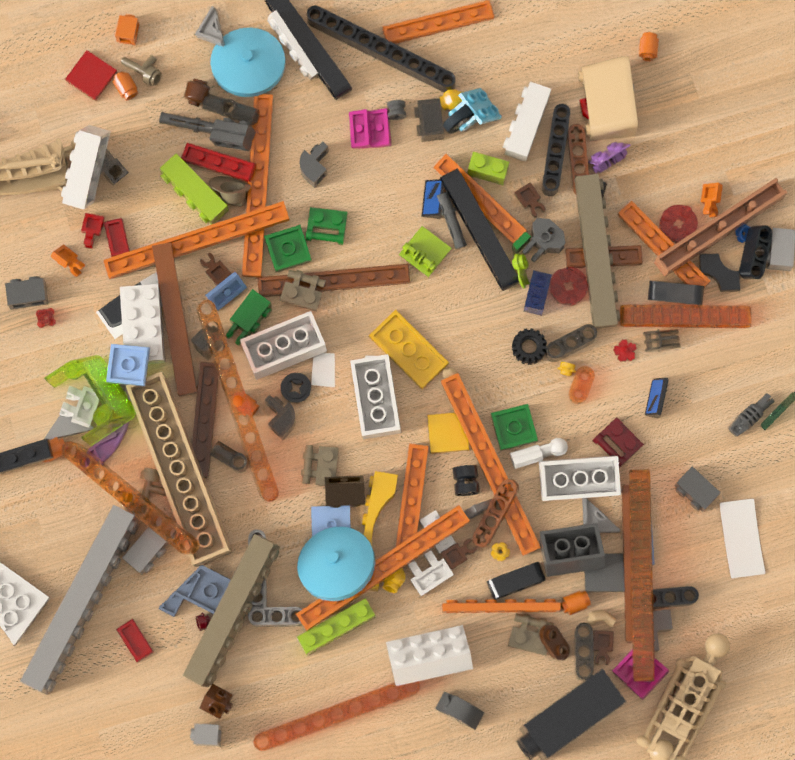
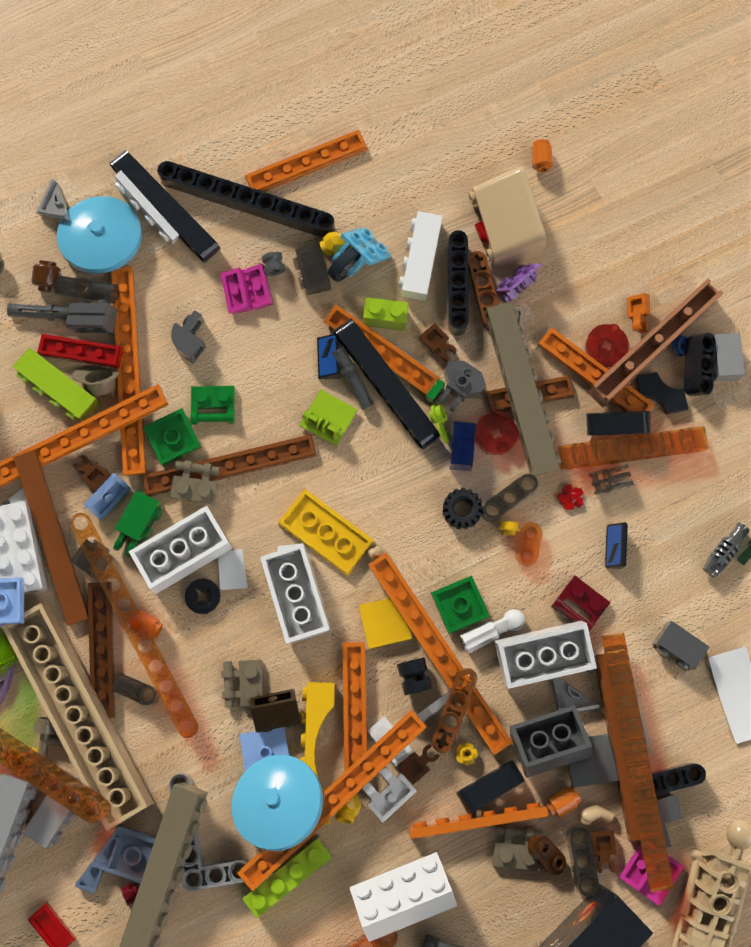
camera: 10 degrees left, 0 degrees up
(285, 419) = (195, 634): clear smoke brick -> none

